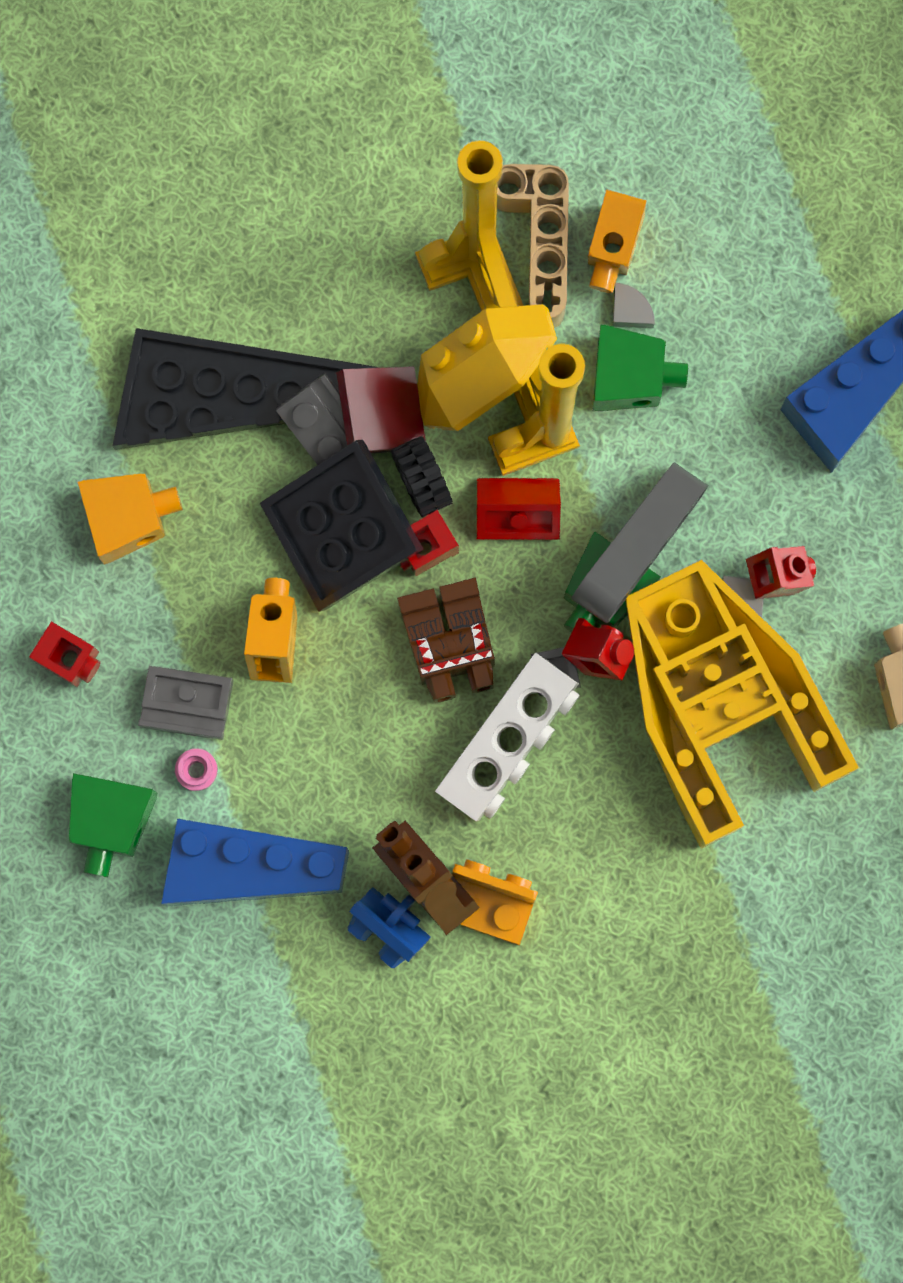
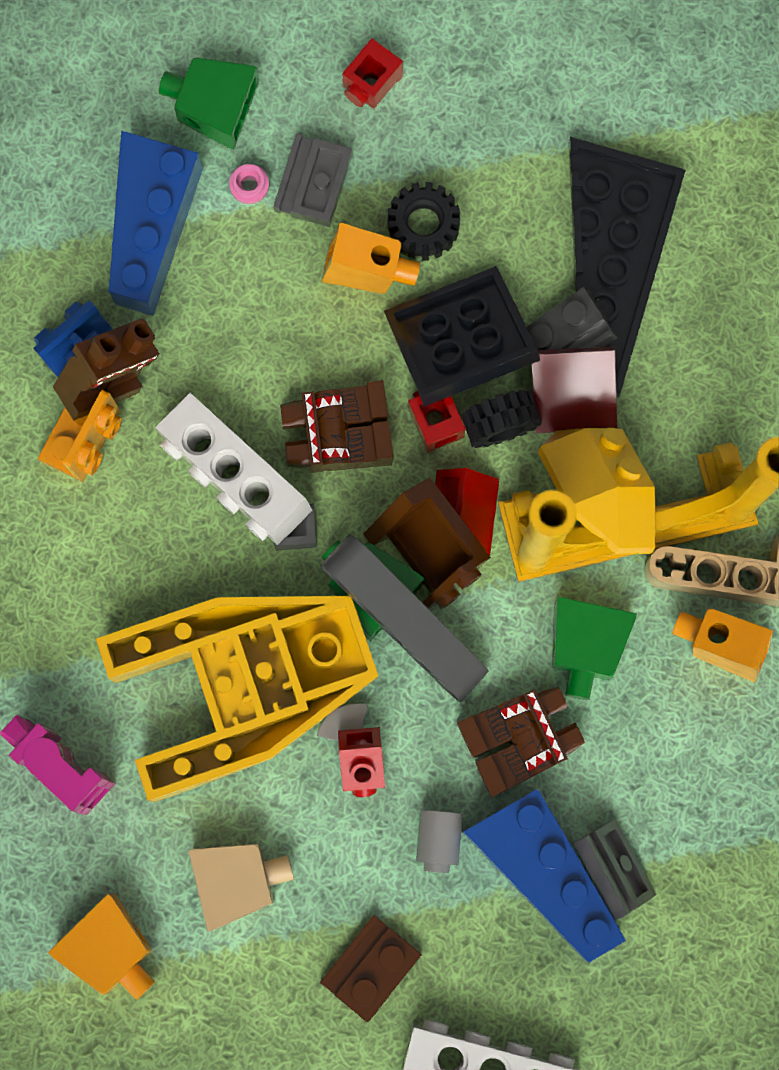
camera: 95 degrees right, 0 degrees up
(125, 513) = (502, 142): light orange torso -> none
(200, 566) = (430, 199): none -> black tyre
(559, 527) = (431, 541): none -> reddish brown panel
(598, 650) = (302, 564): red brick -> none
(631, 308) = (656, 653): light grey tile -> none
(736, 426) = (530, 732): none -> reddish brown hips
(838, 869) = (55, 765): none -> dark pink hips
(845, 489) = (439, 840): none -> light grey brick
(847, 320) = (615, 869): none -> flat silver plate

